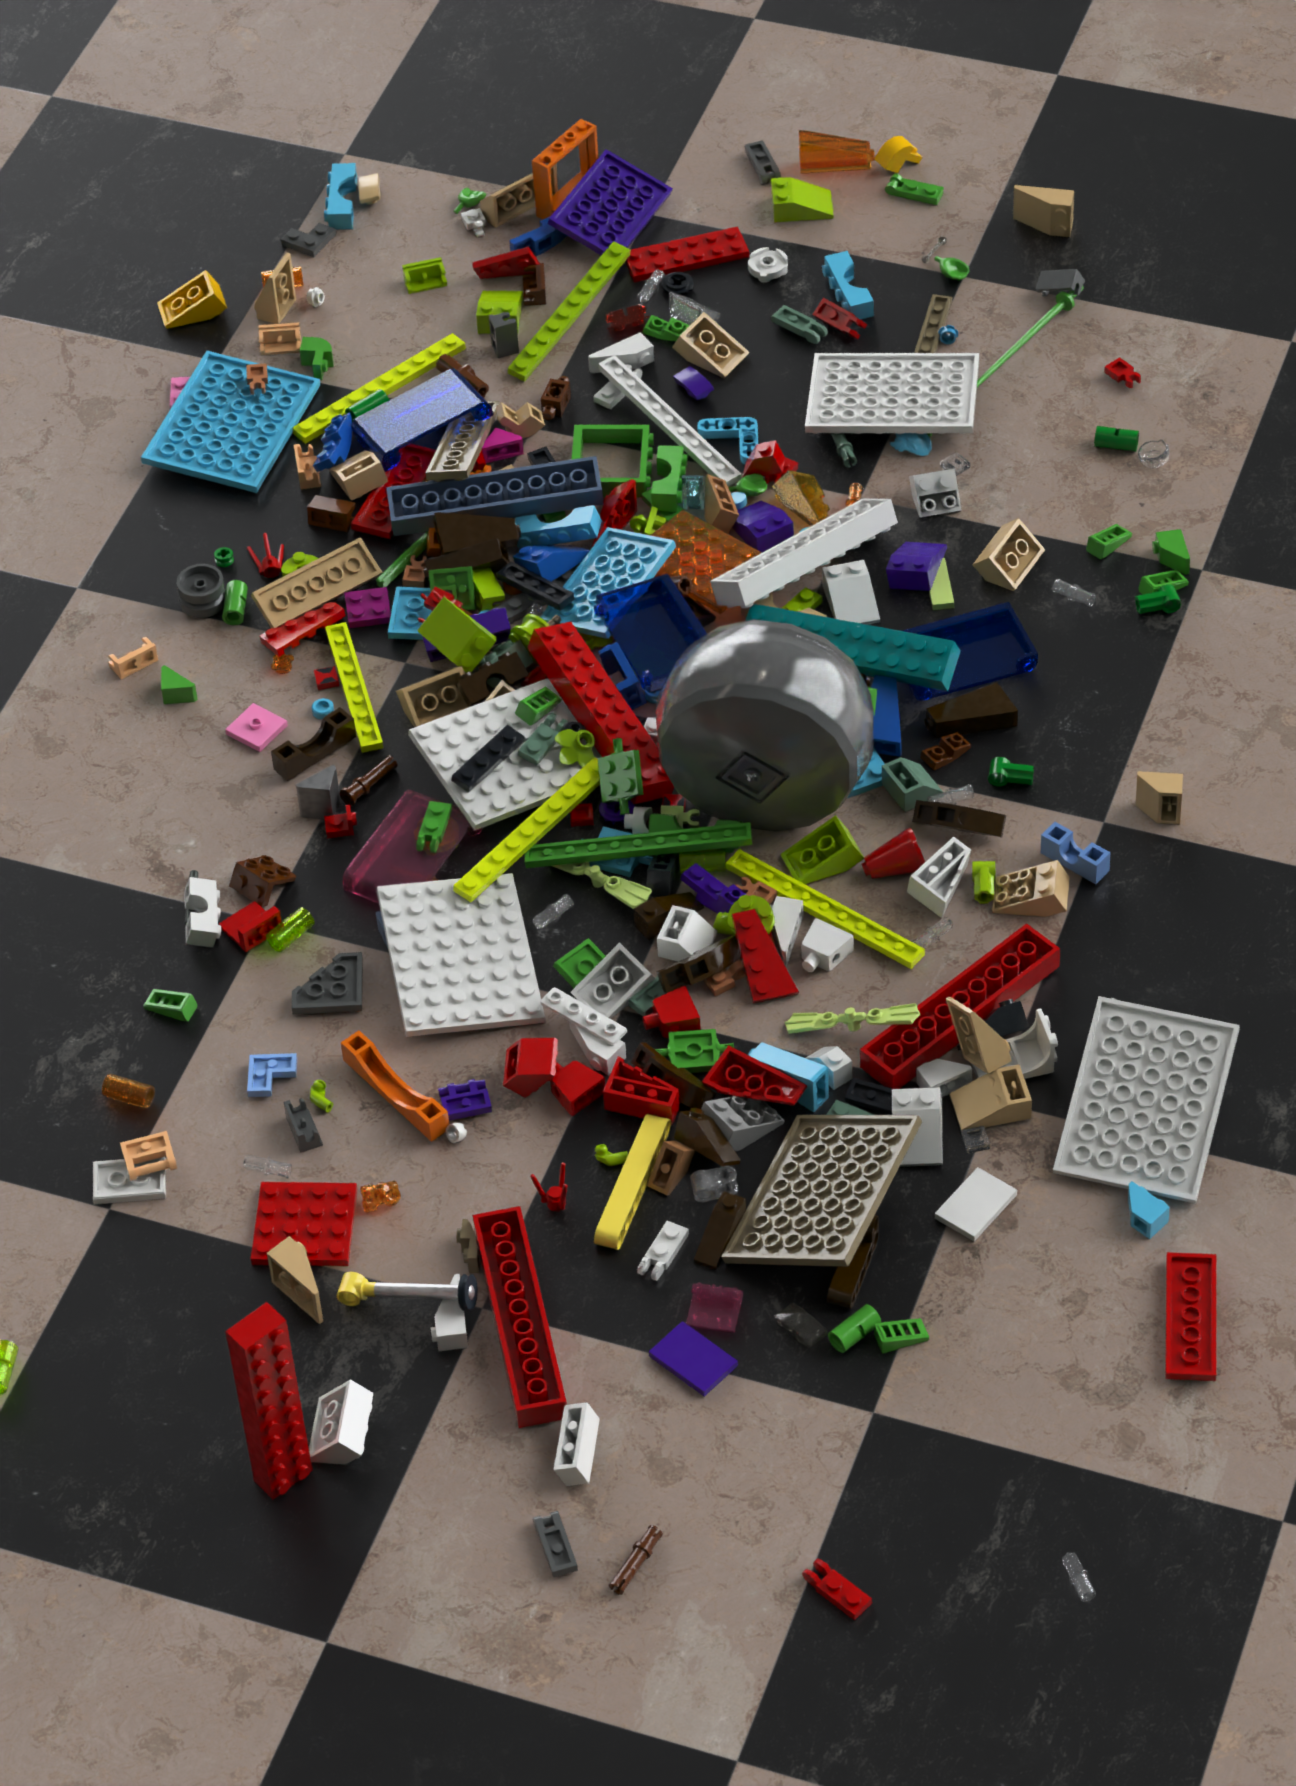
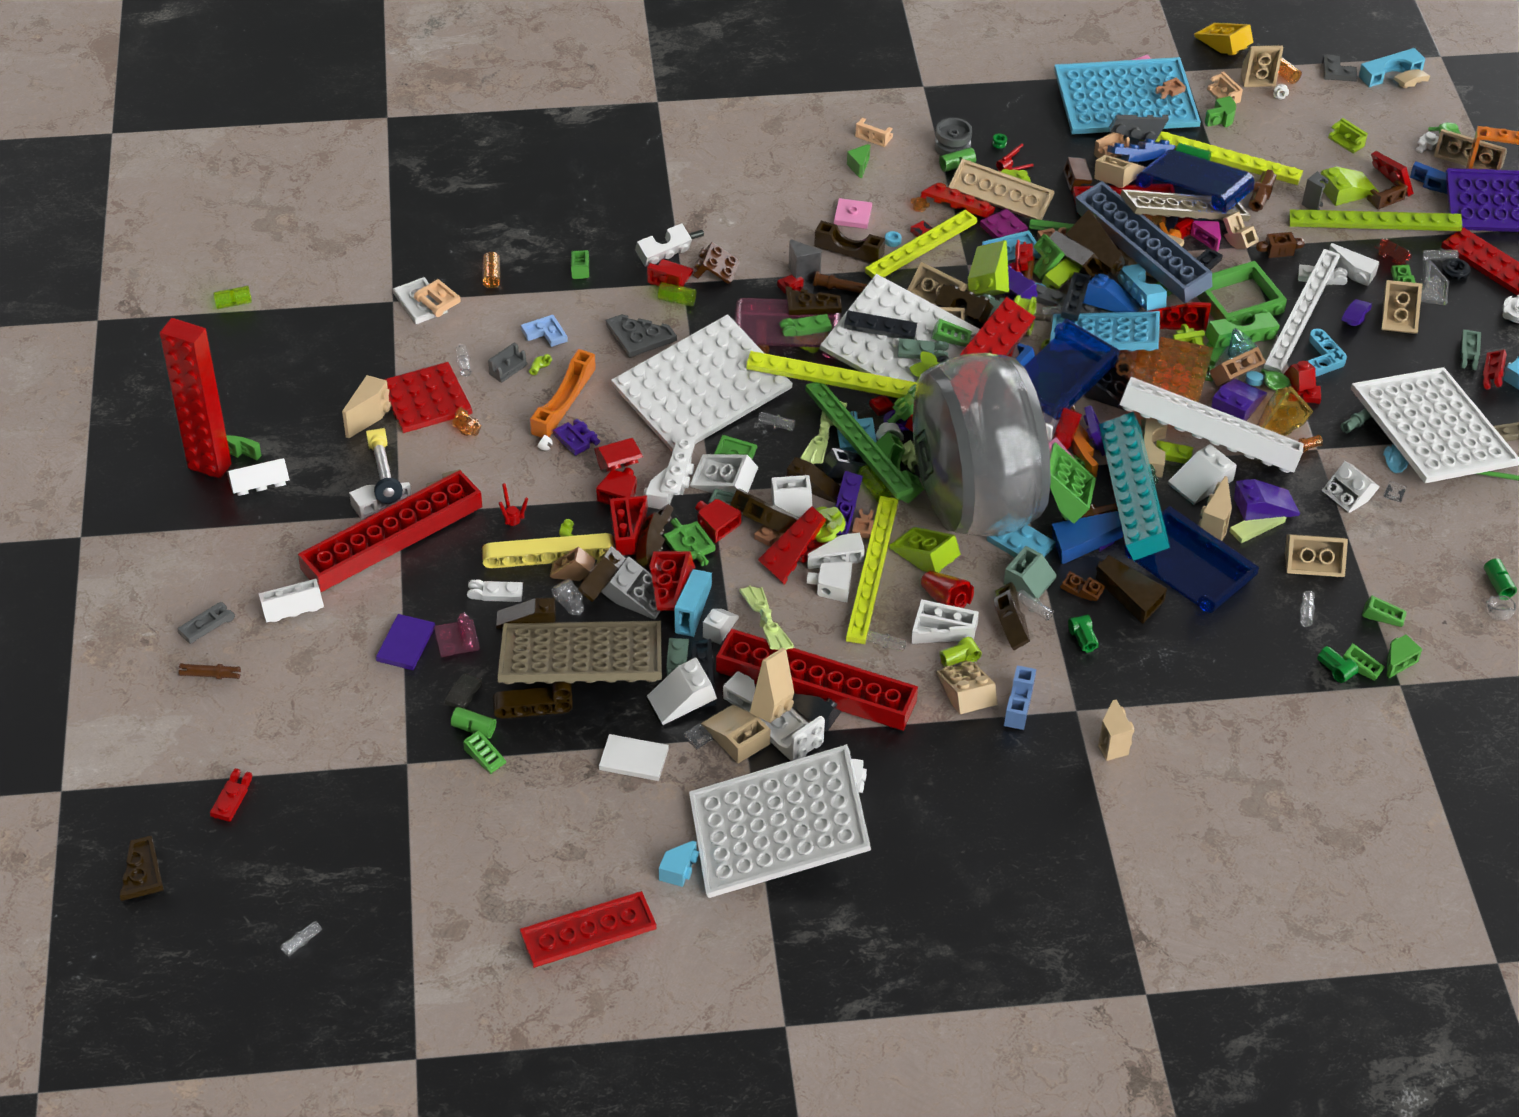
camera: 60 degrees right, 0 degrees up
(311, 426) = (1139, 127): none -> dark grey wing
(403, 809) = (807, 303): none -> dark brown wing
(905, 1702) = (142, 870): none -> dark brown wing
(915, 598) = (1217, 513): none -> tan slope

